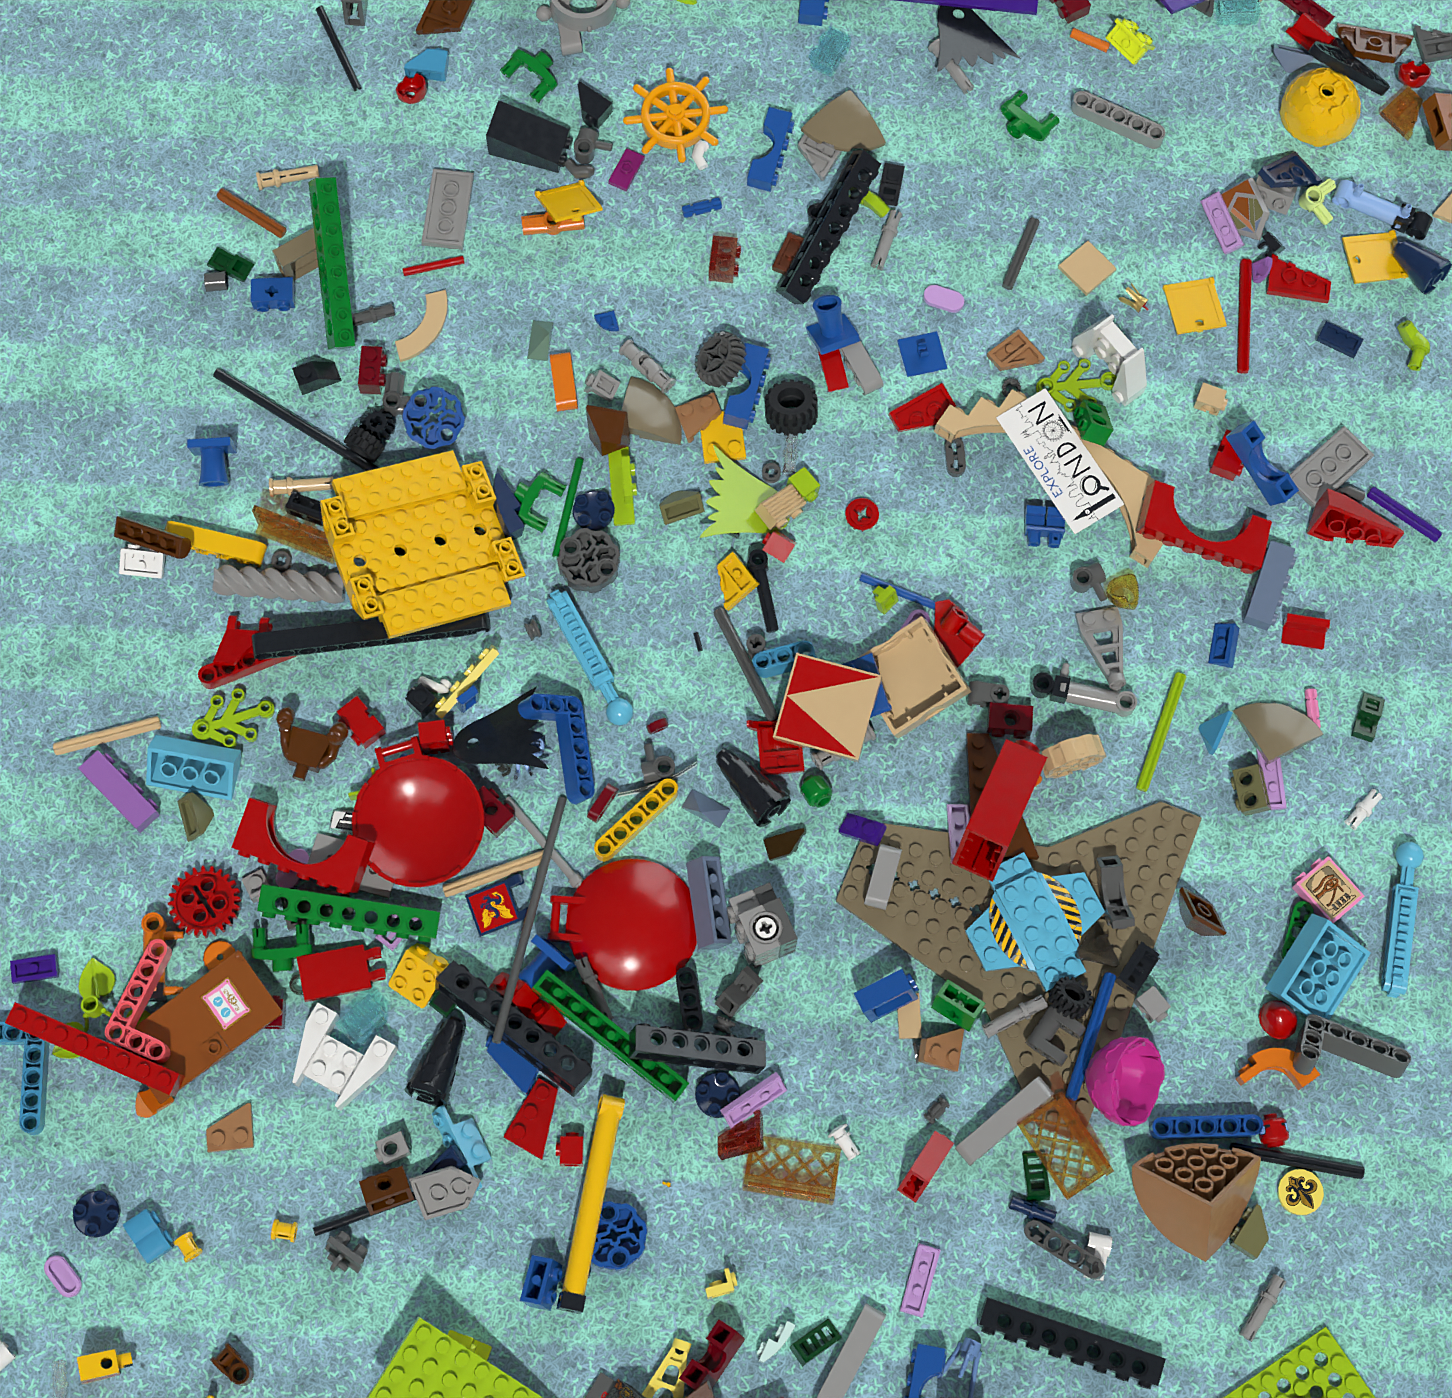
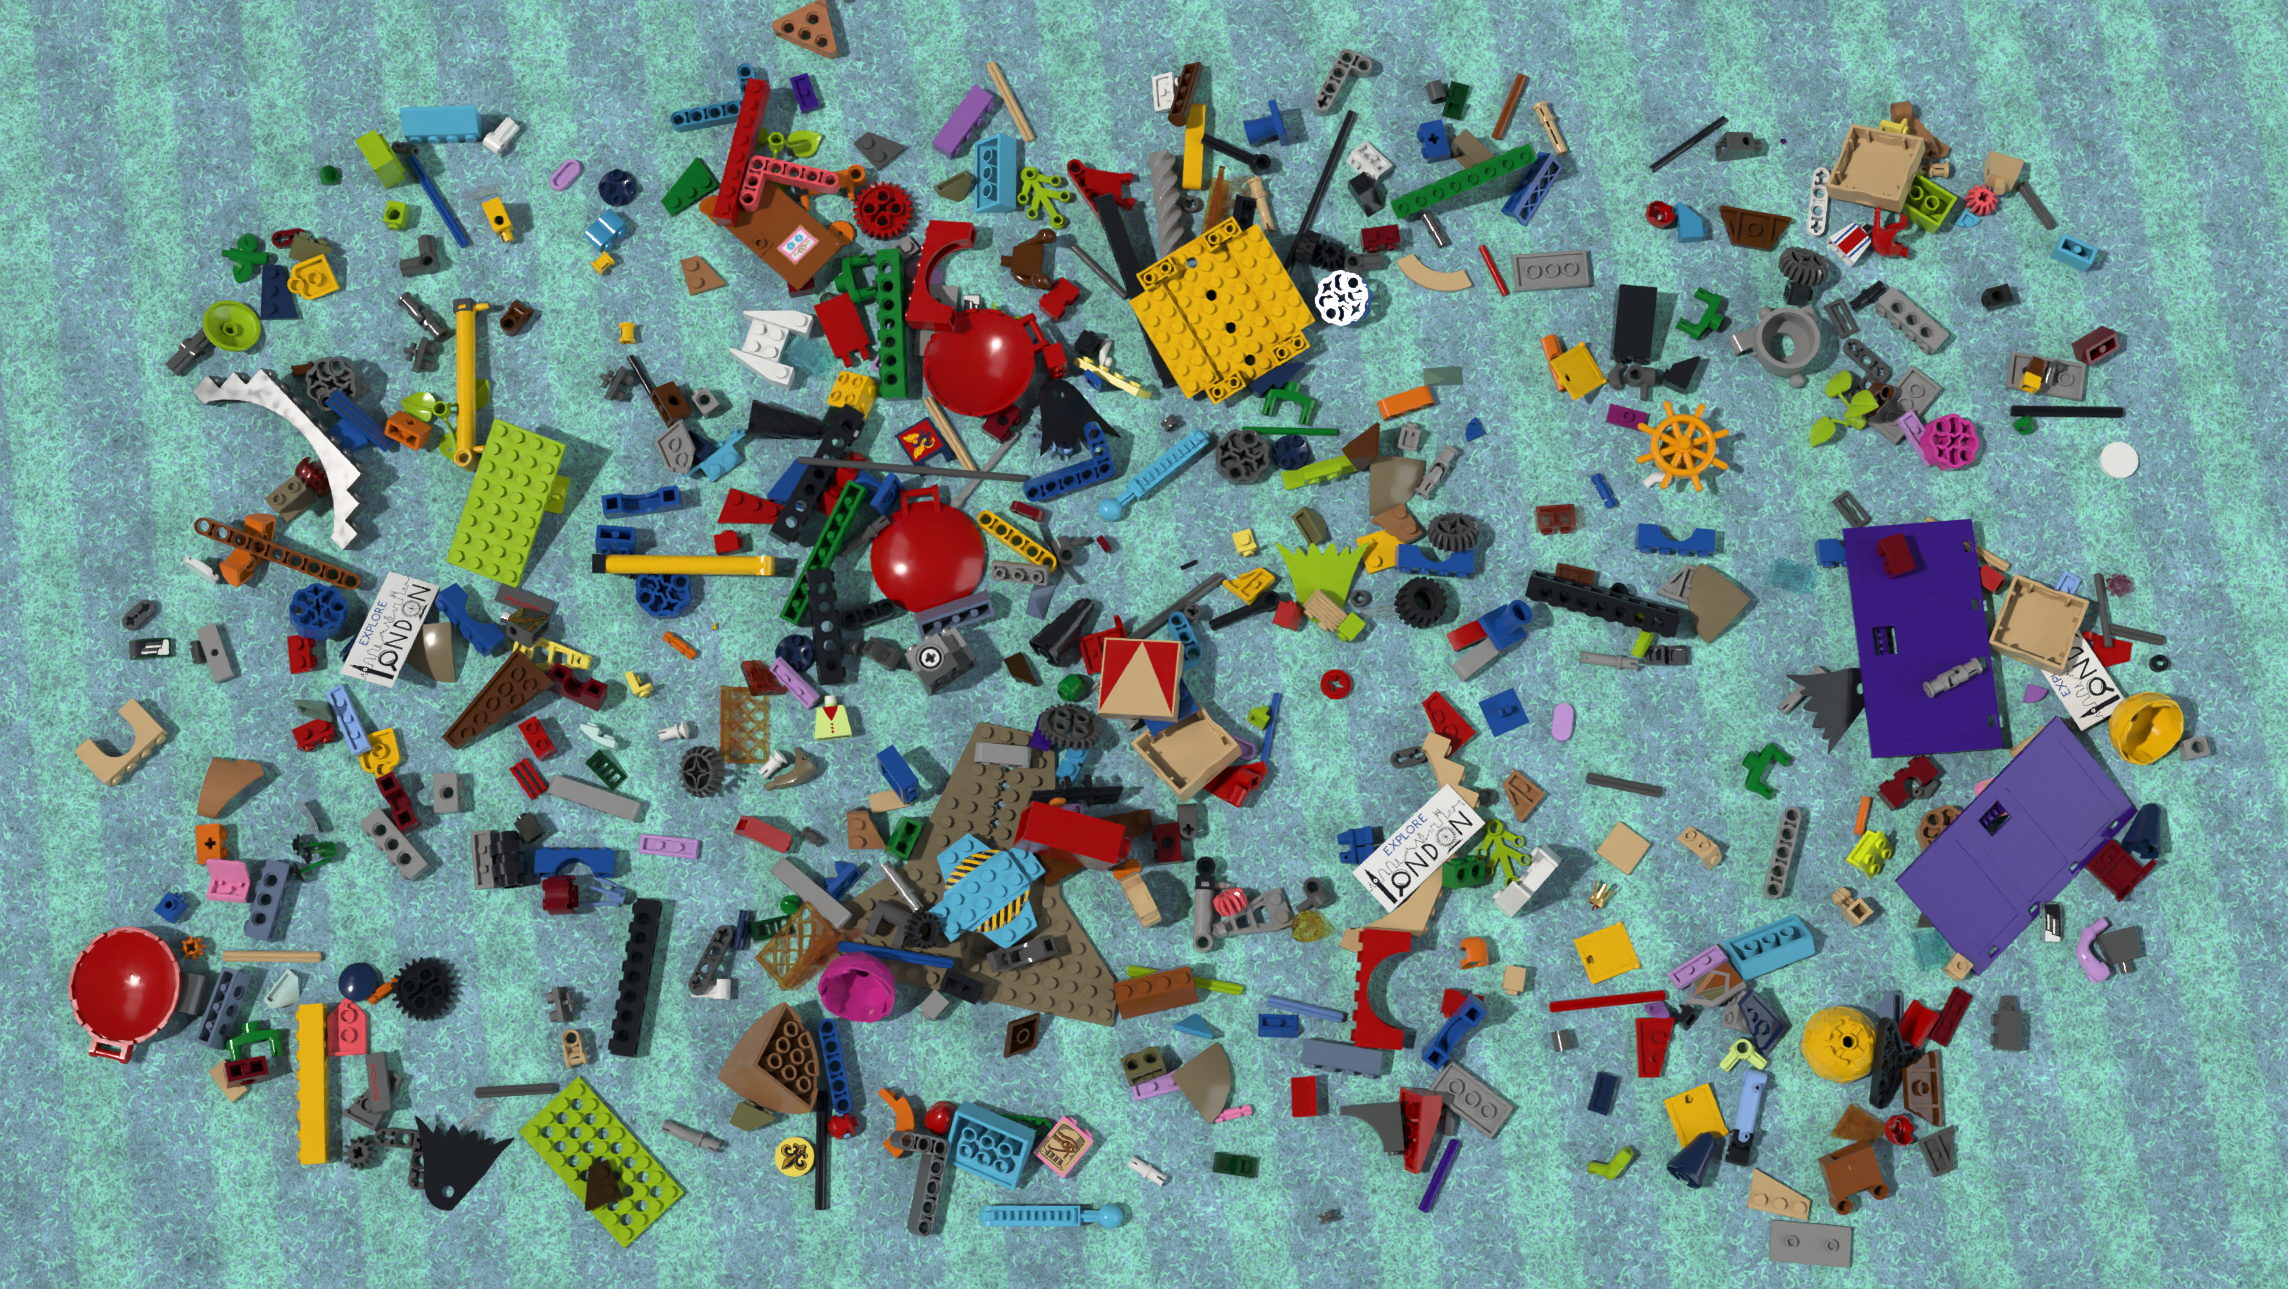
camera: 80 degrees right, 5 degrees up
(118, 1126) = (689, 188): none -> green wing
(126, 896) = (878, 150): none -> dark grey wing
(180, 379) = (1336, 83): none -> light grey beam
(246, 486) = (1238, 154): none -> black axle
(278, 365) = (1369, 160): none -> white bracket
(336, 674) = (1103, 275): none -> dark grey piece
(356, 220) = (1531, 184): none -> blue fence
(501, 1244) = (624, 505): none -> blue arch
(669, 830) = (1030, 573): none -> light grey tile
(682, 1228) = (679, 645): none -> orange axle
(686, 577) = (1244, 543): none -> light yellow bracket
(785, 1251) = (676, 731): none -> white pin
(806, 1064) = (832, 721): none -> yellowish green torso
(835, 1213) = (701, 783): none -> dark grey gear
(858, 1106) = (802, 771): none -> dark tan animal
(864, 796) = (1056, 722): none -> dark grey gear
(910, 807) = (1069, 766): none -> dark azure piece
(938, 814) = (1086, 792): none -> black piece
(988, 1077) = (847, 876): none -> blue tile
(1011, 1149) = (789, 904): none -> green tile
(1086, 665) = (1230, 902): none -> coral gear
(1098, 193) = (1701, 846): none -> tan bracket
(1170, 761) = (1155, 991): none -> dark orange slope
(1176, 426) = (1476, 952): none -> orange helmet
(1187, 66) = (1853, 910): none -> tan brick
(1210, 613) = (1305, 1009): none -> medium blue axle
(1212, 151) = (1770, 947): none -> medium azure slope
(1281, 366) = (1561, 1040): none -> dark grey beam
(1341, 555) = (1384, 1120): none -> dark grey arch
(1435, 632) = (1327, 1217): none -> dark grey bush

